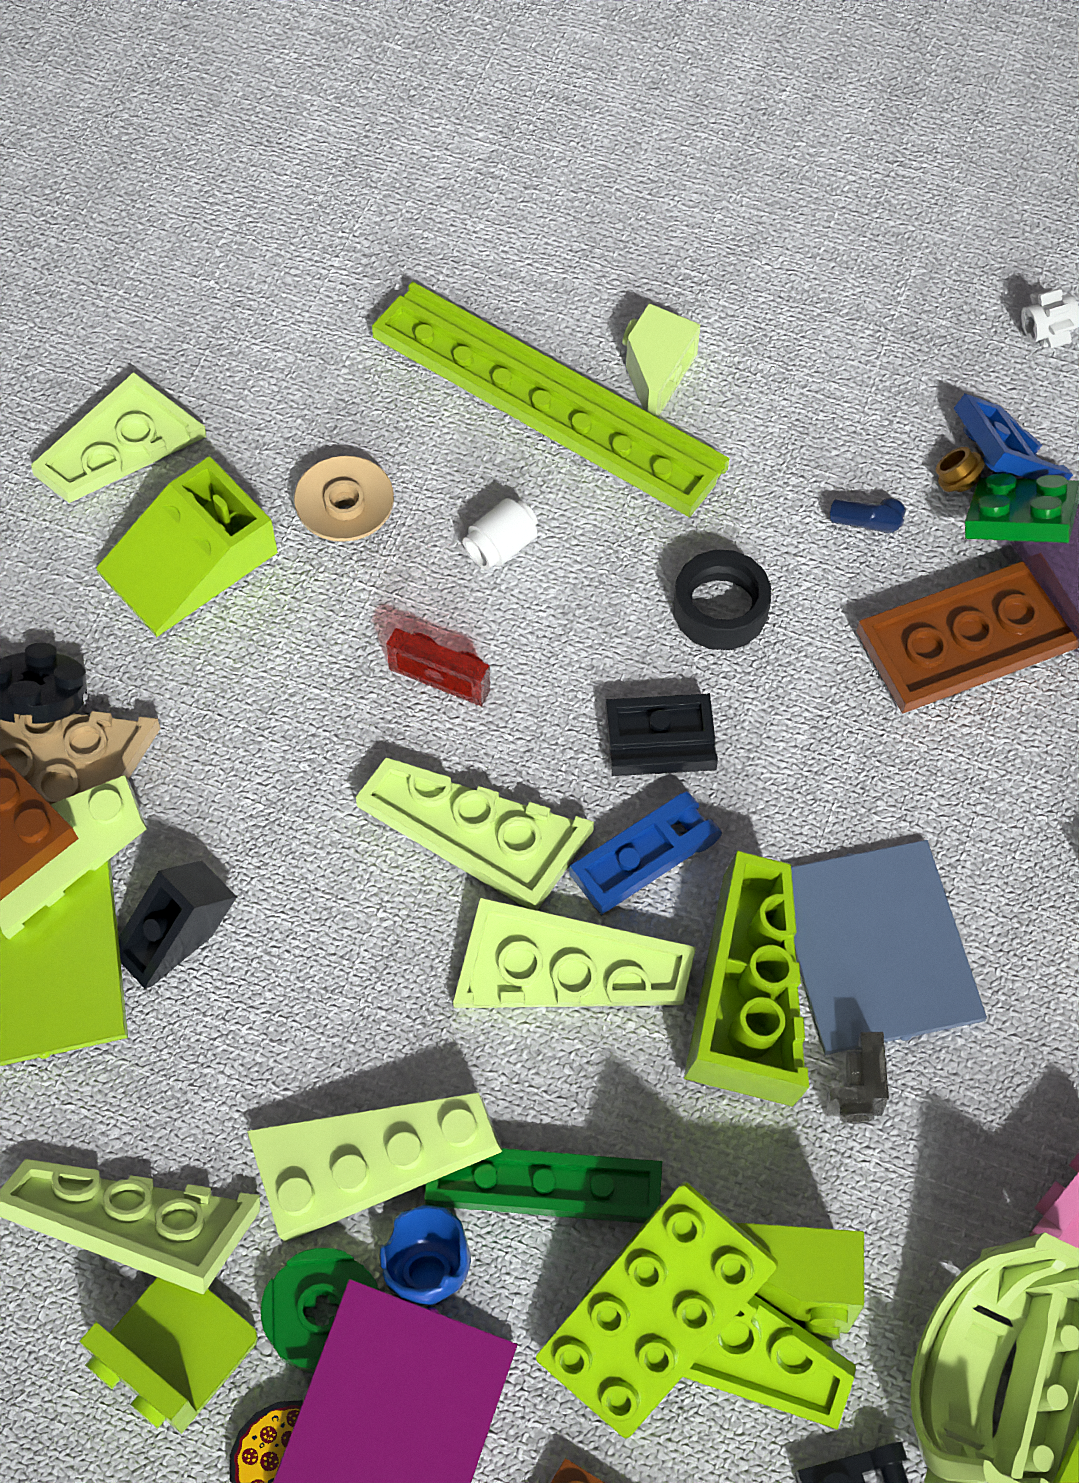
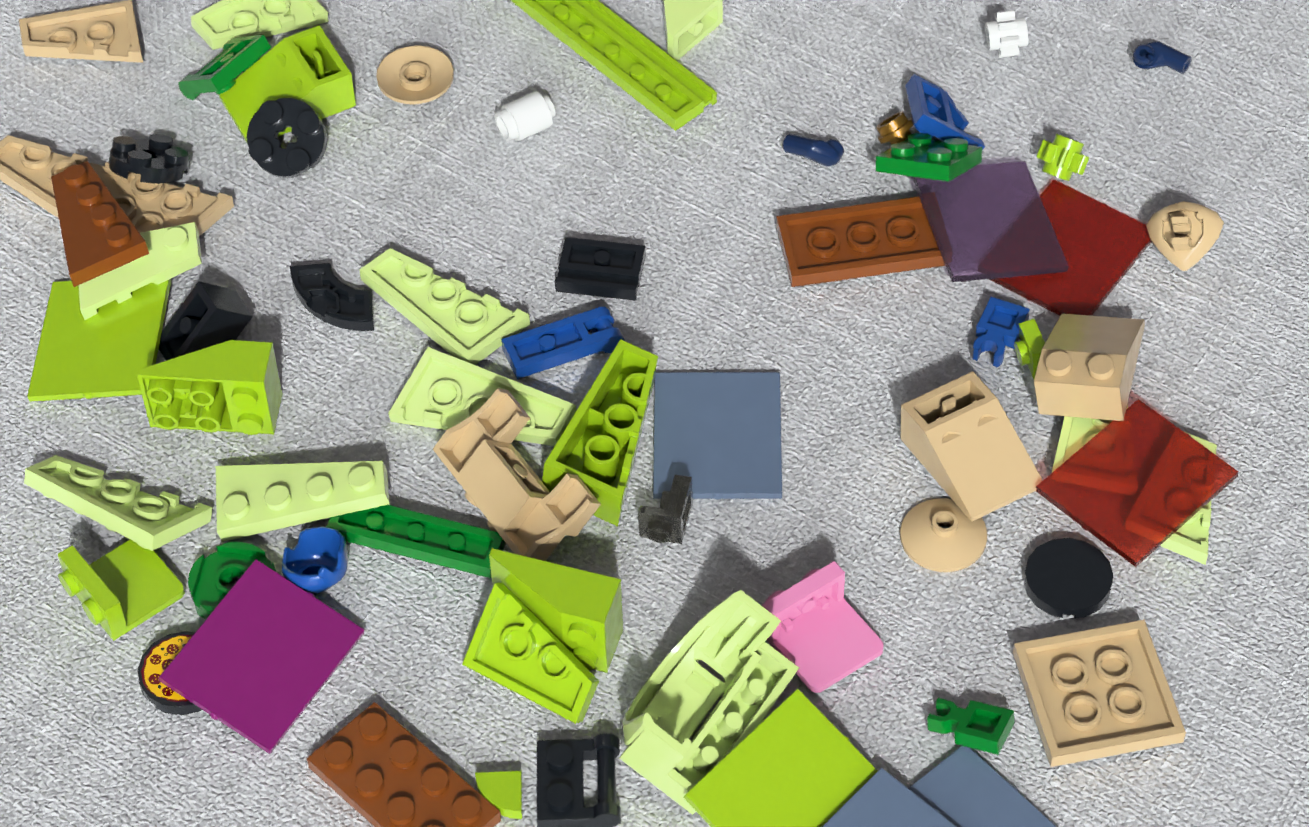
camera: 15 degrees right, 10 degrees down
(97, 530) = (220, 72): none -> green plate
(184, 641) = (275, 118): none -> black plate
(226, 1022) = (215, 389): none -> lime slope
(325, 842) = (331, 299): none -> black tile
(439, 667) = (449, 196): clear red plate -> none
(647, 1092) = (506, 486): none -> tan bracket
(656, 1309) = (461, 610): lime bracket -> none
(722, 566) = (676, 165): black tyre -> none

